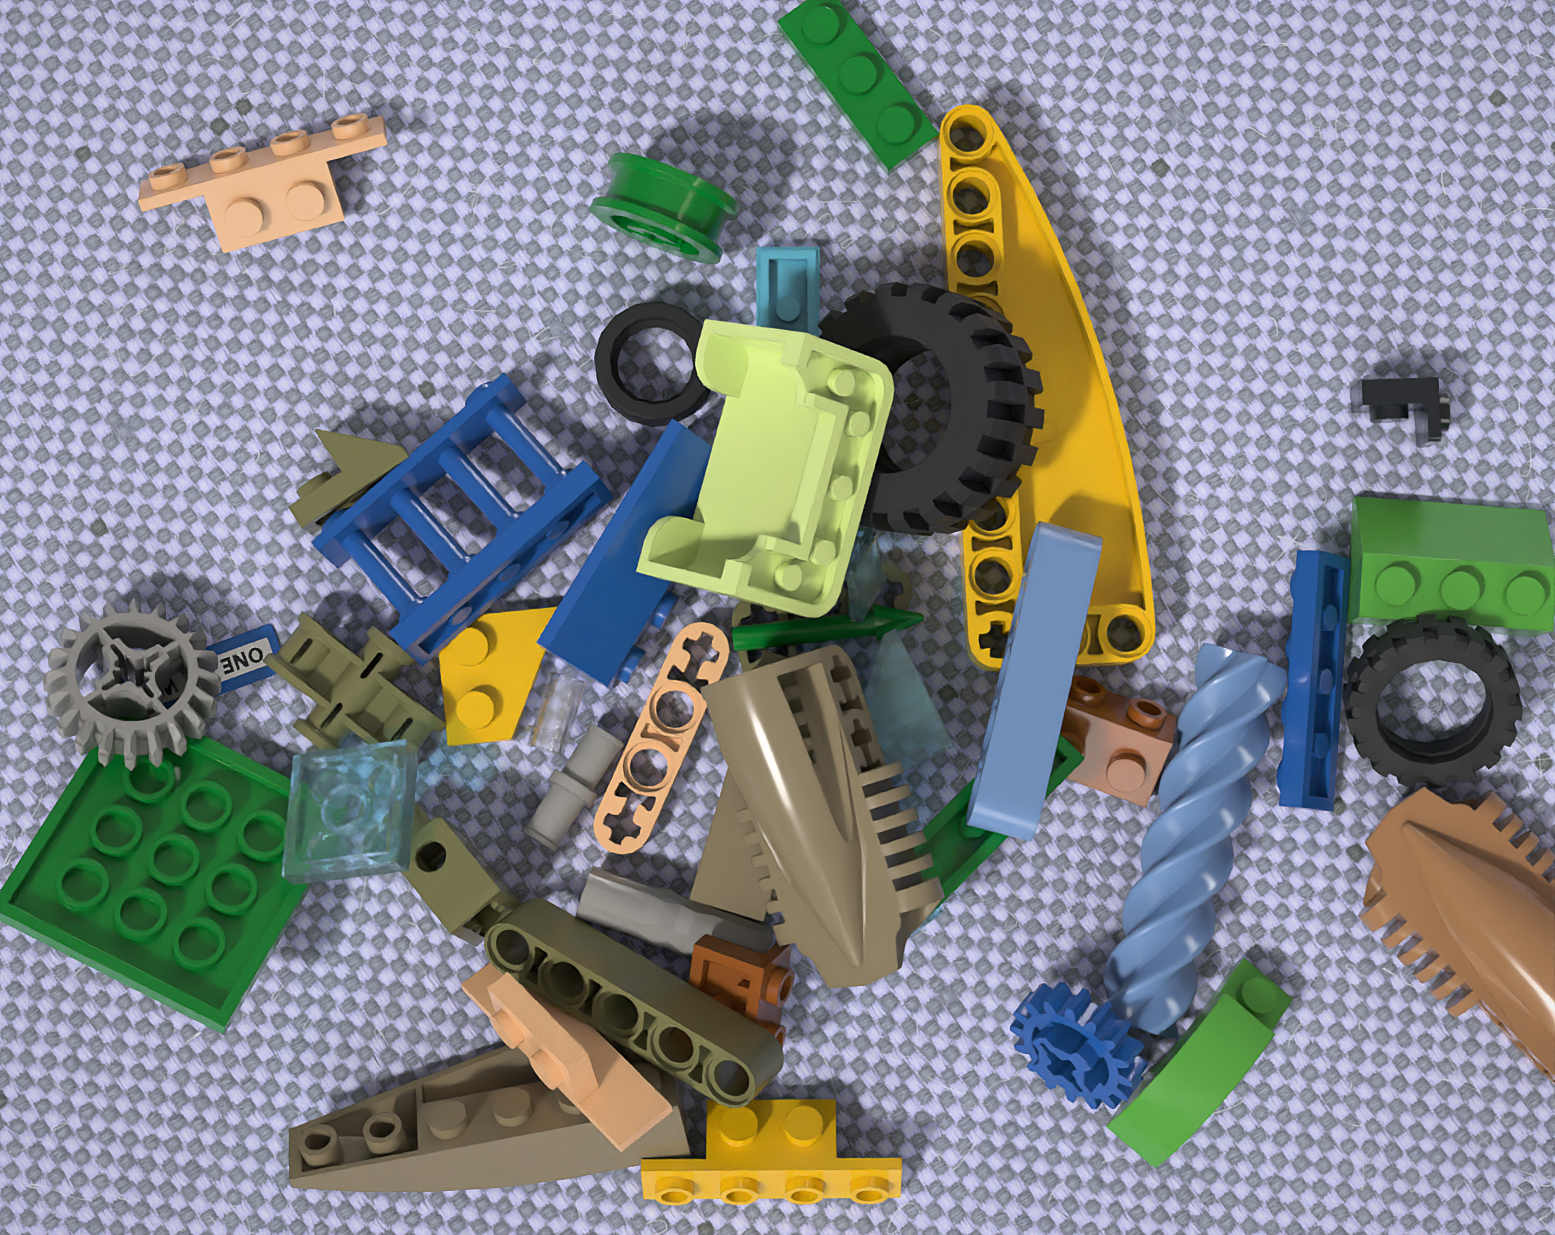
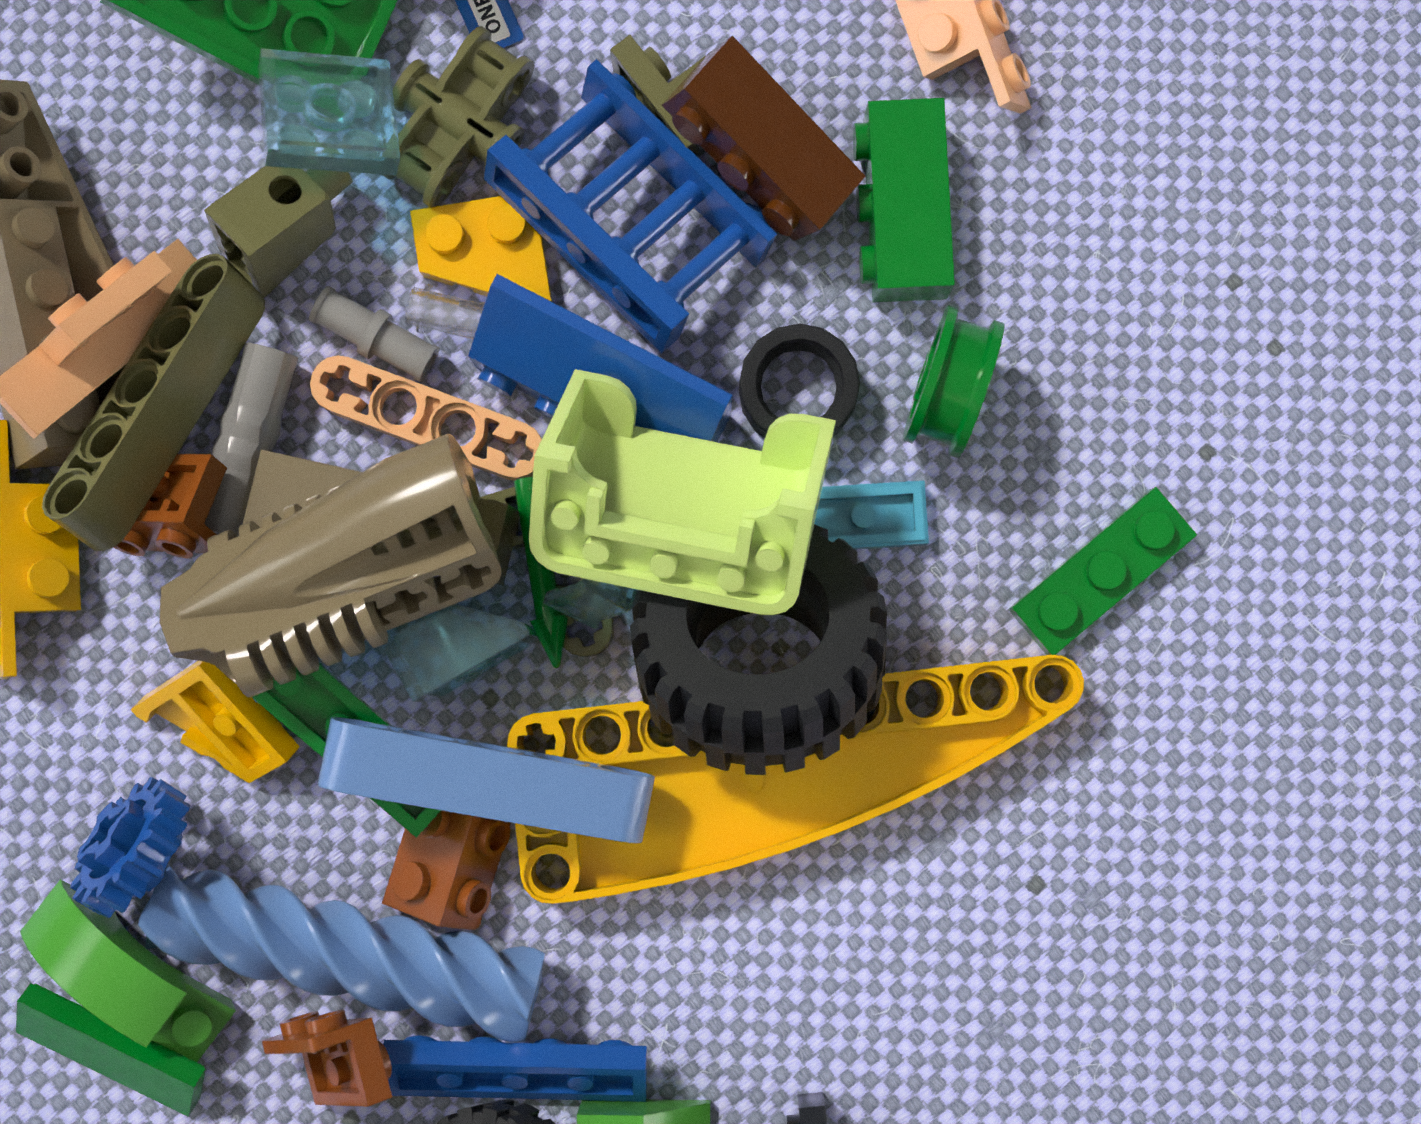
camera: 85 degrees right, 0 degrees up
(409, 379) = (763, 141): none -> reddish brown brick
(473, 245) = (905, 200): none -> green brick
(956, 958) = (220, 721): none -> yellow wing
(1275, 1082) = (96, 1045): none -> green tile
(1294, 850) = (339, 1055): none -> dark orange bracket

